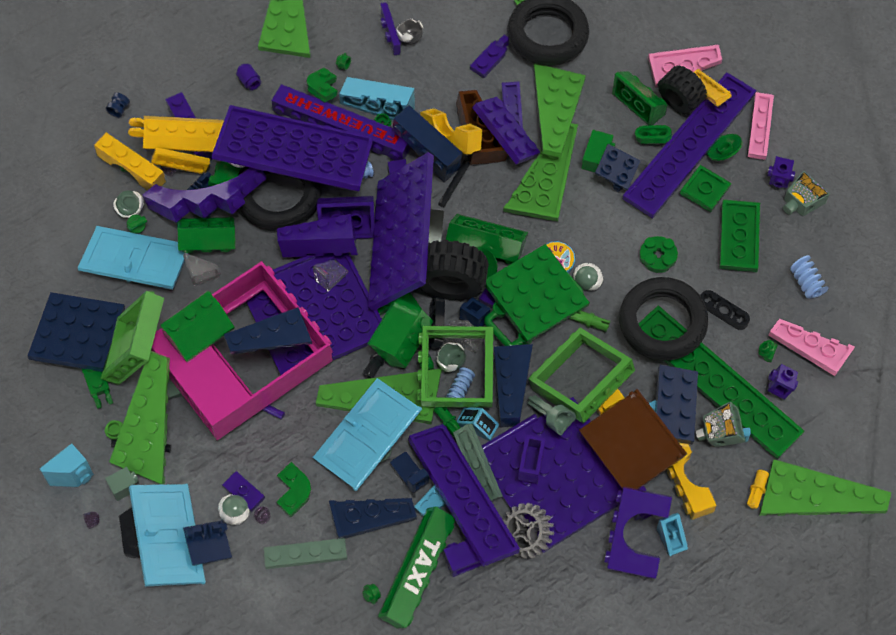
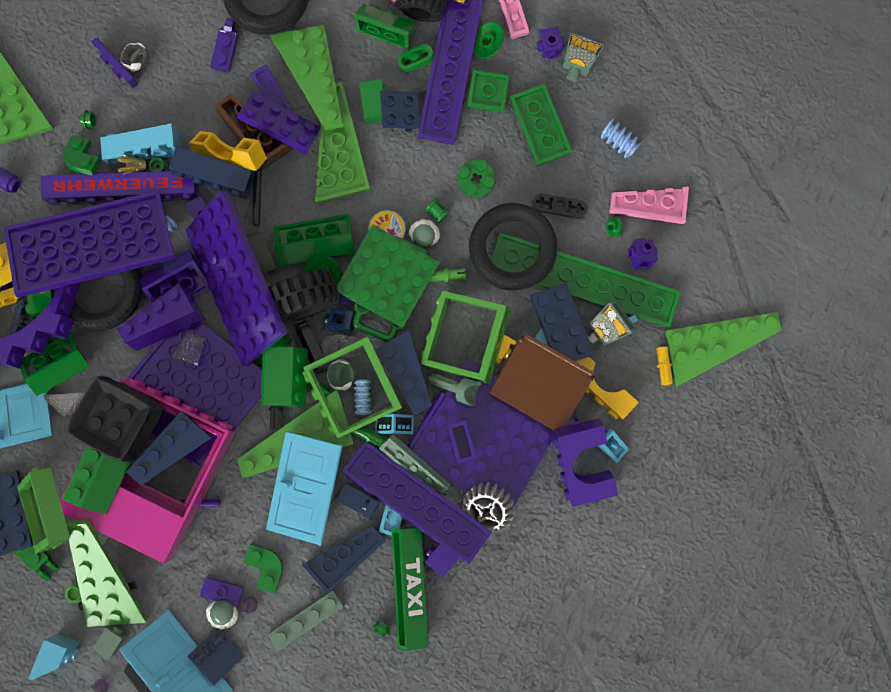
camera: 30 degrees left, 20 degrees up
(243, 280) = (114, 419): none -> black piece
(365, 111) = (133, 165): none -> pearl gold piece
(609, 263) = (437, 210): none -> green bush

